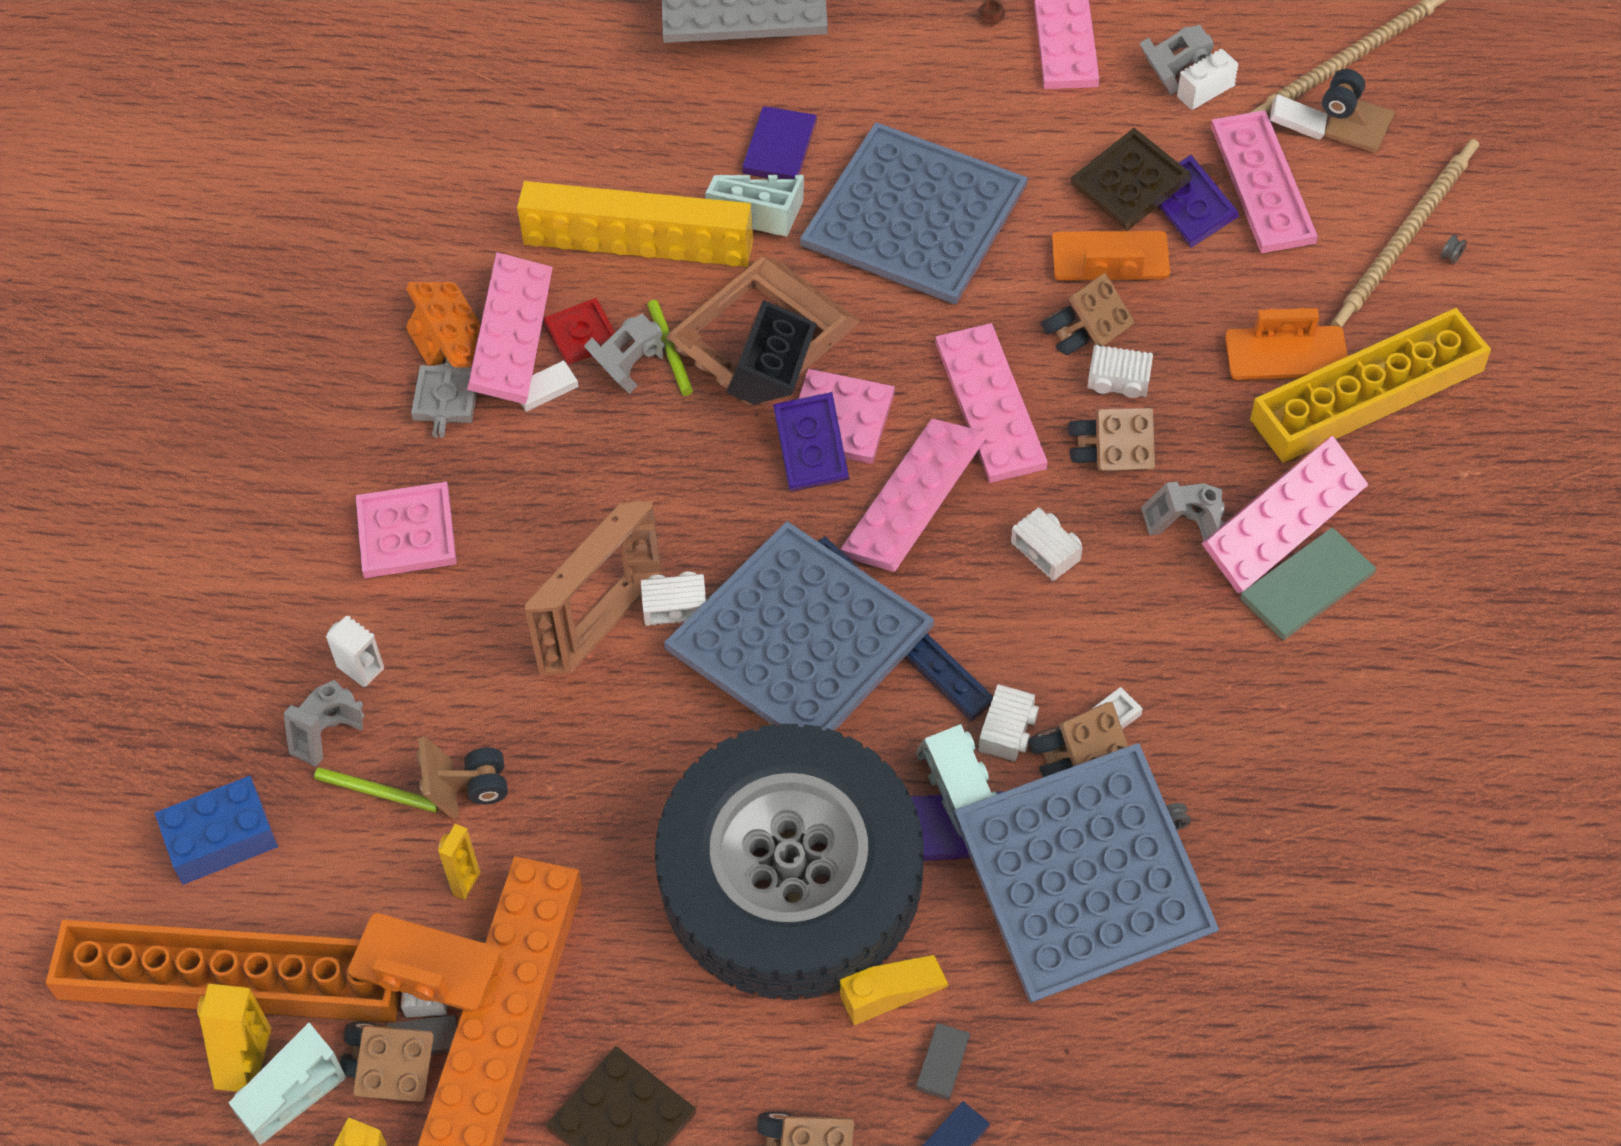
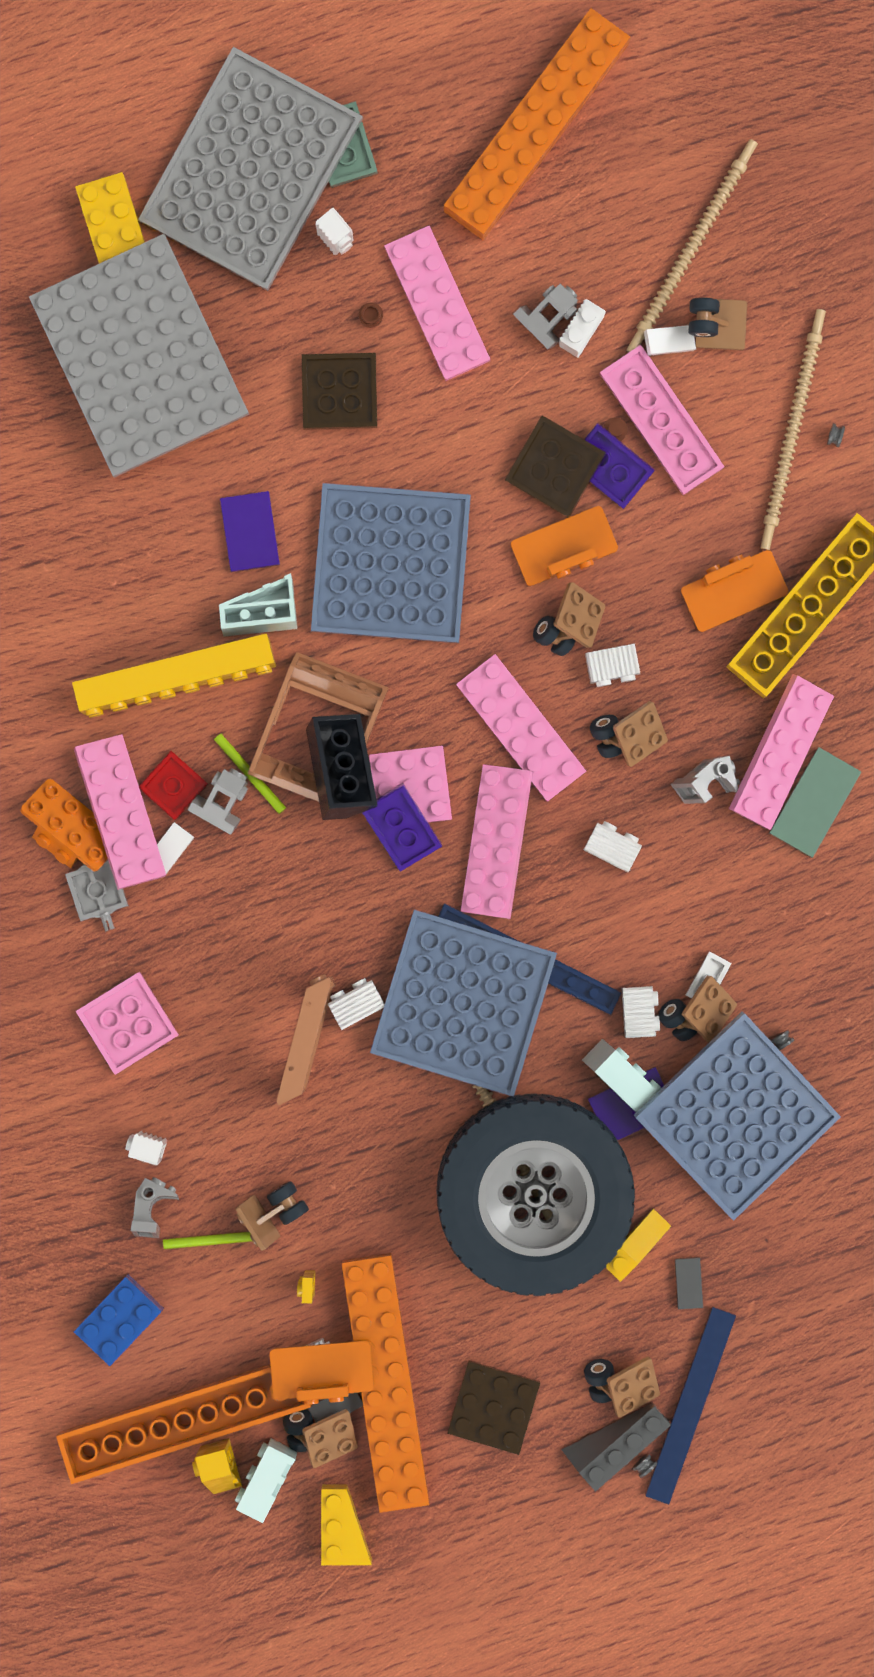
camera: 25 degrees left, 30 degrees up
(930, 59) = (339, 391): none -> dark brown plate

